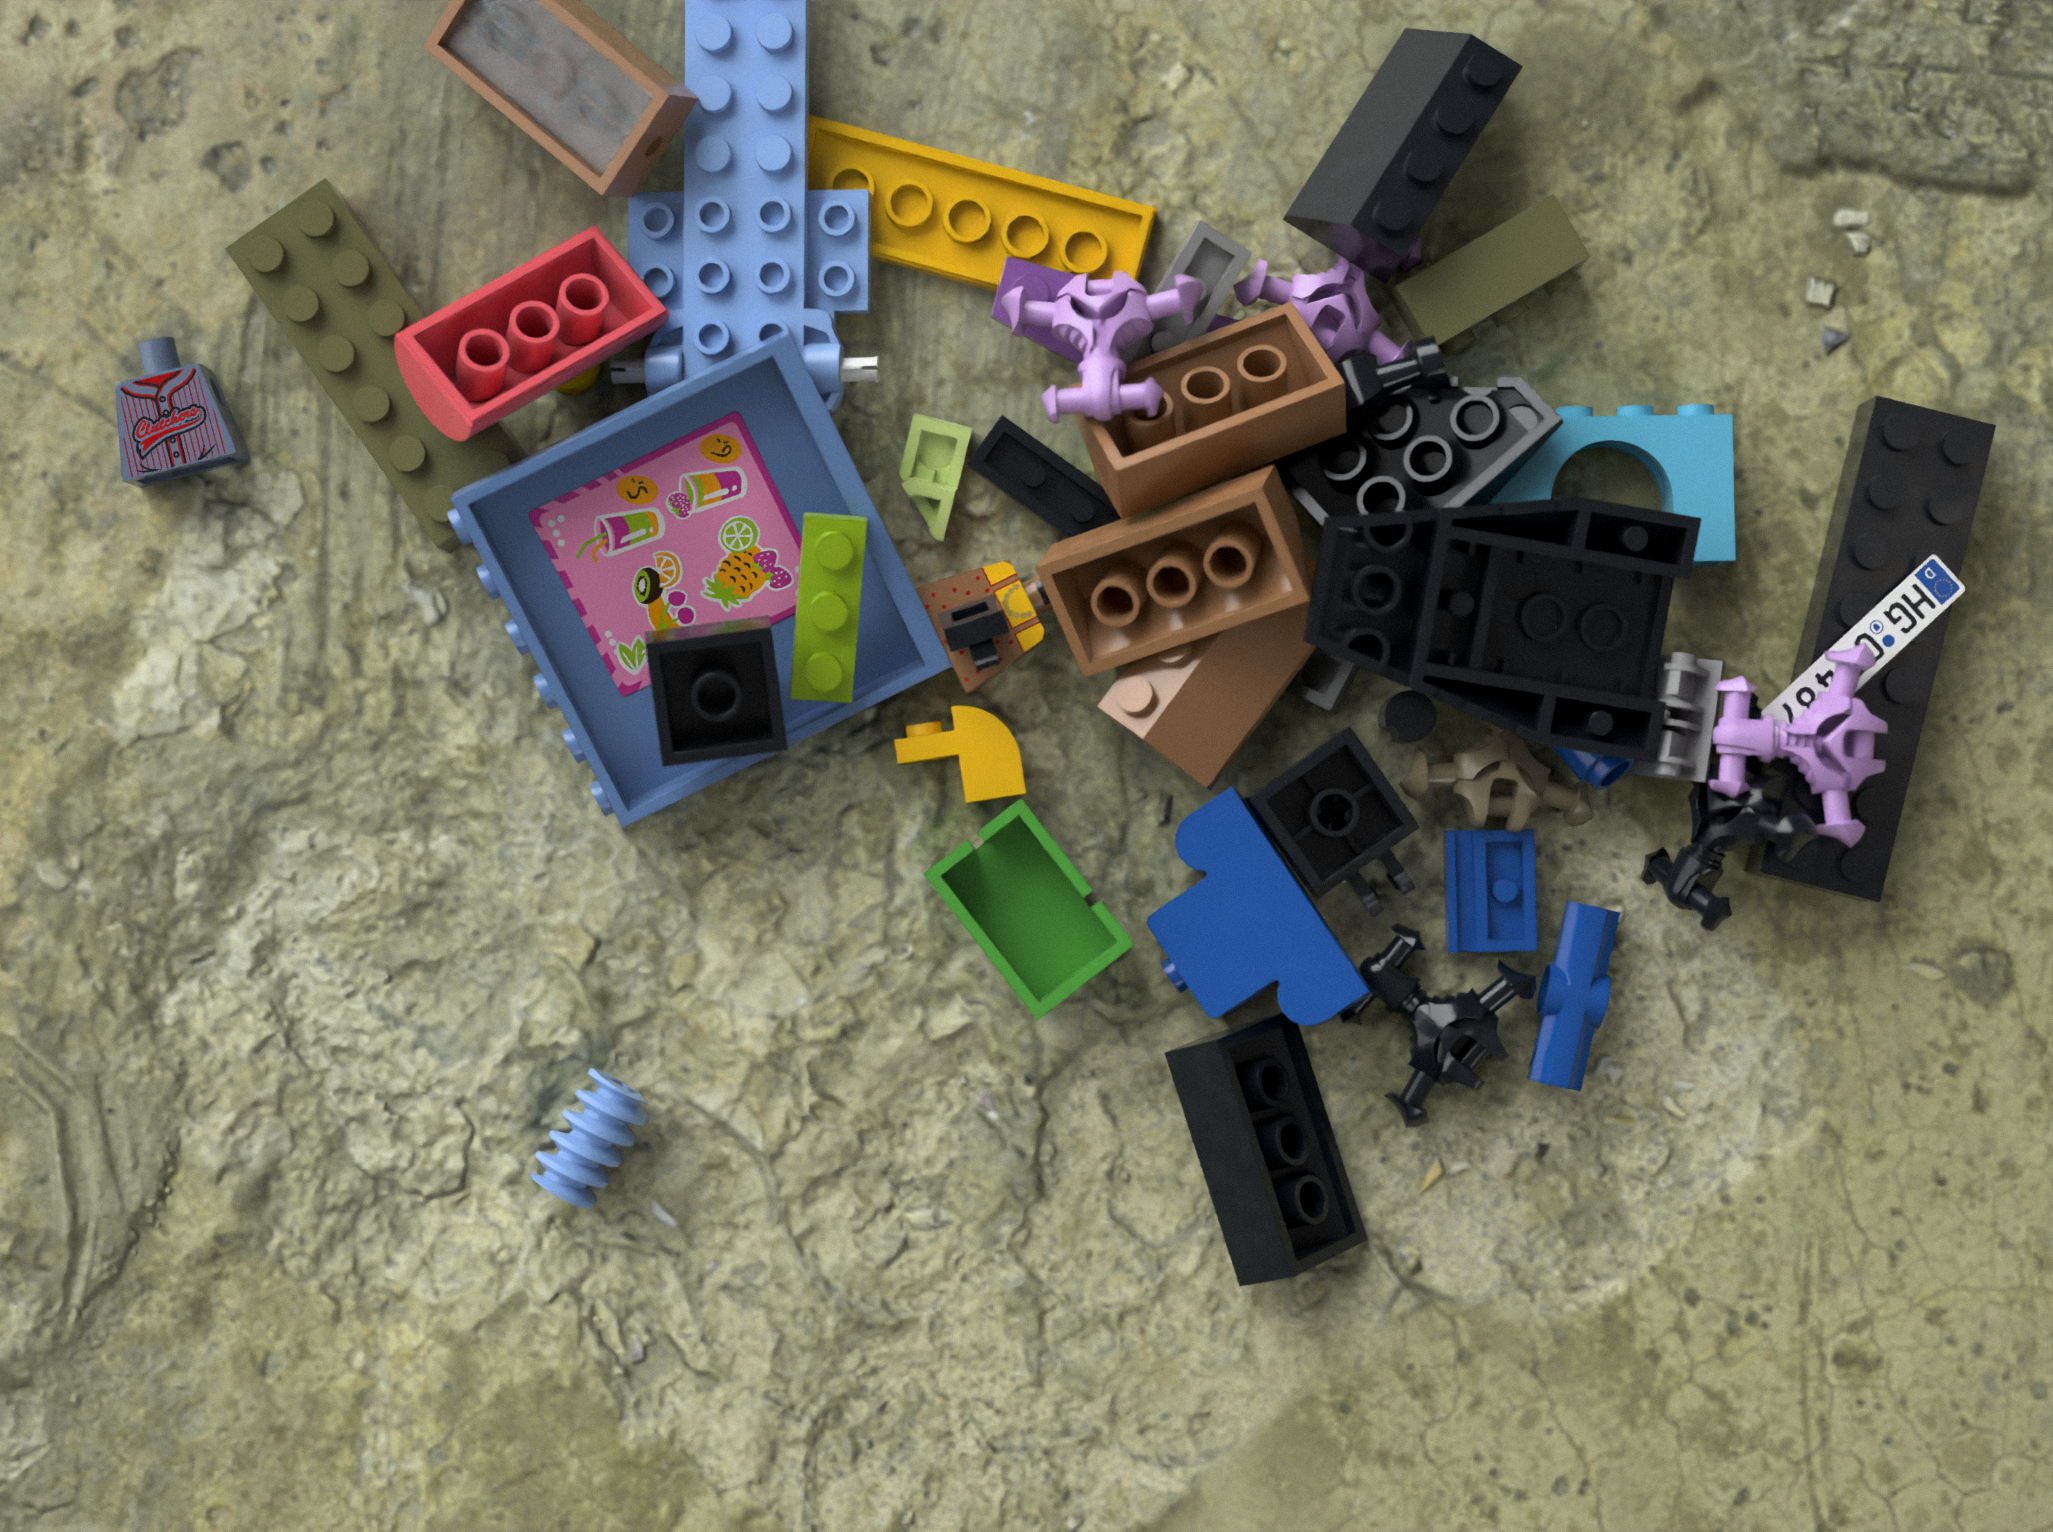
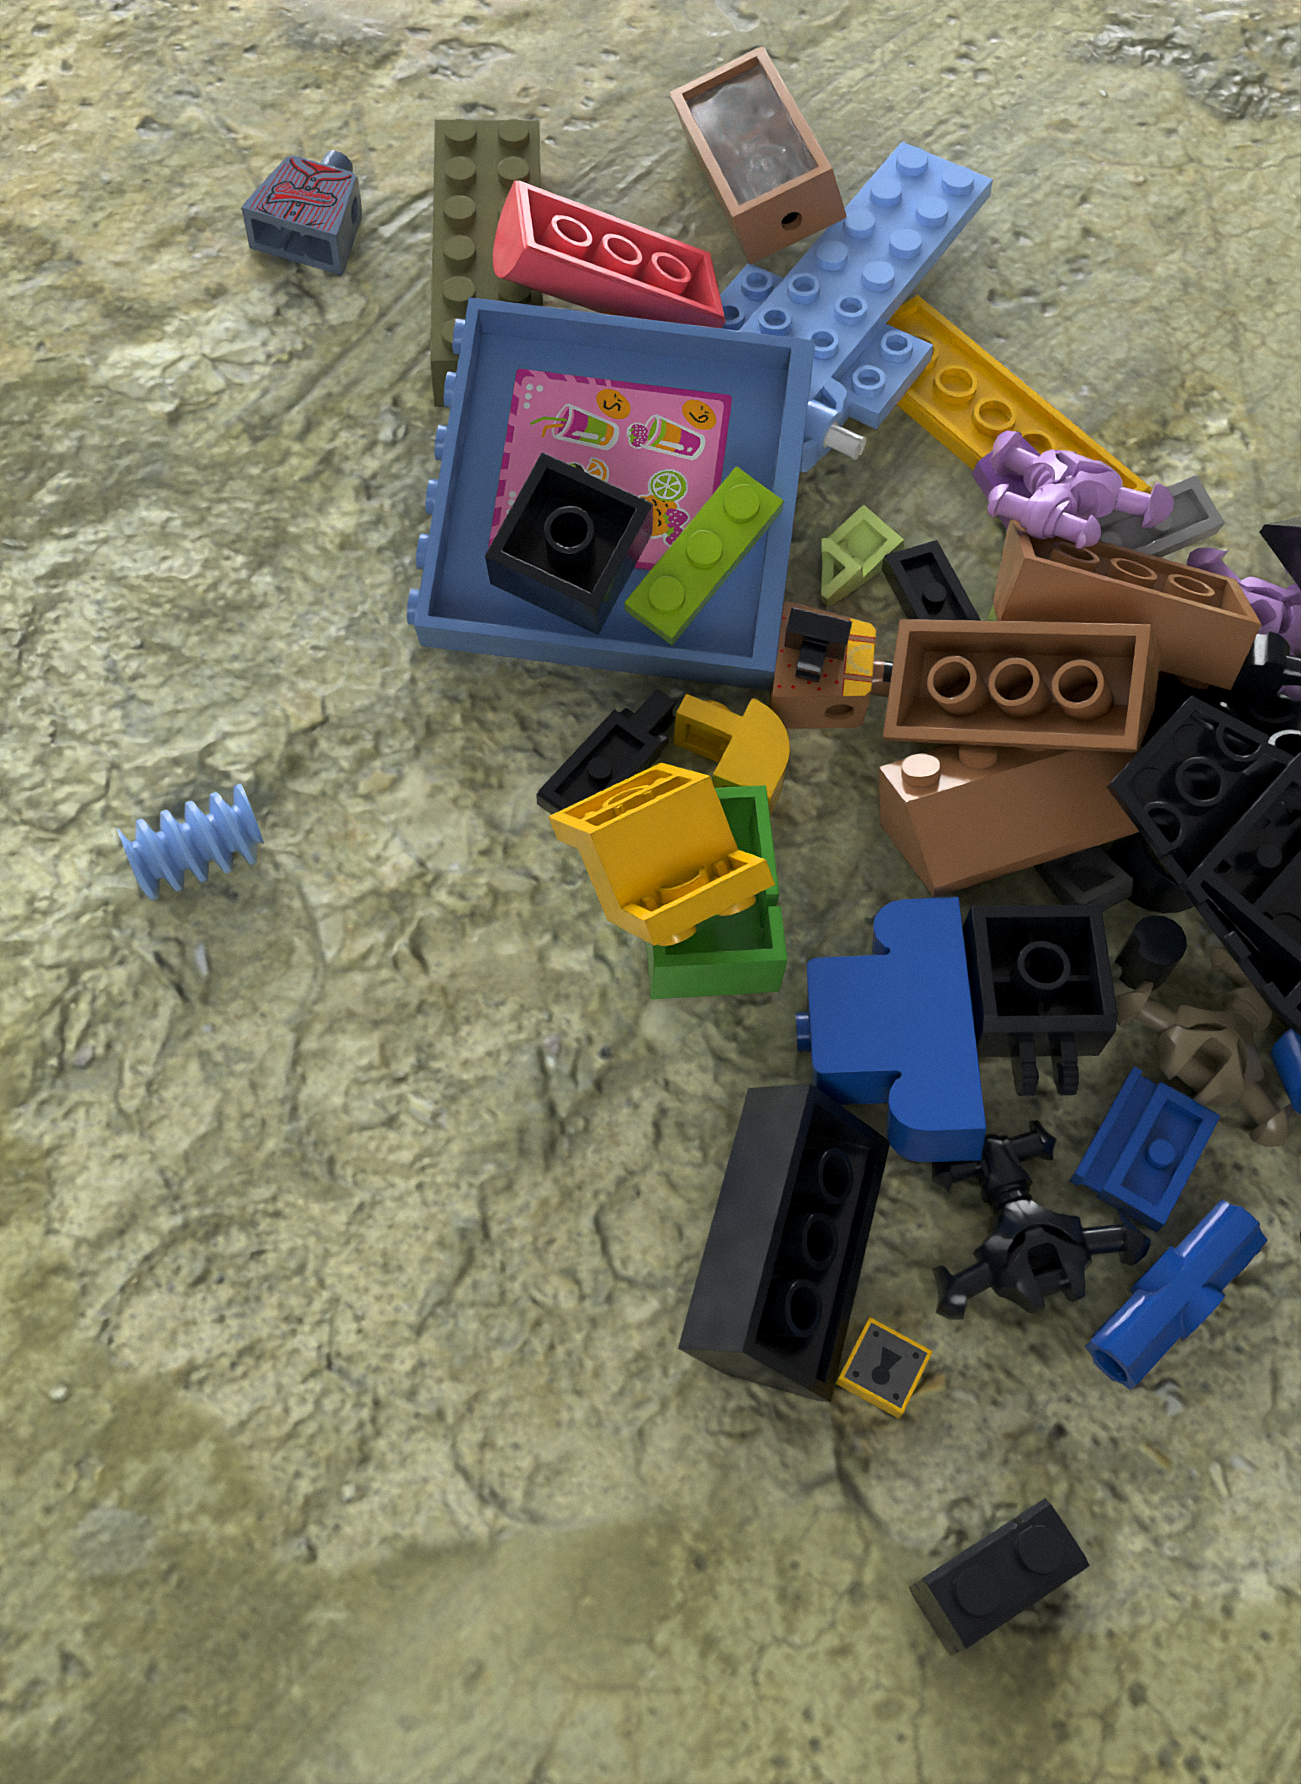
camera: 25 degrees right, 25 degrees down
(866, 833) = (612, 753): none -> black hinge
(987, 944) = (662, 854): none -> yellow bracket
(1391, 1190) = (884, 1367): none -> tile
(1556, 1294) = (999, 1577): none -> black brick

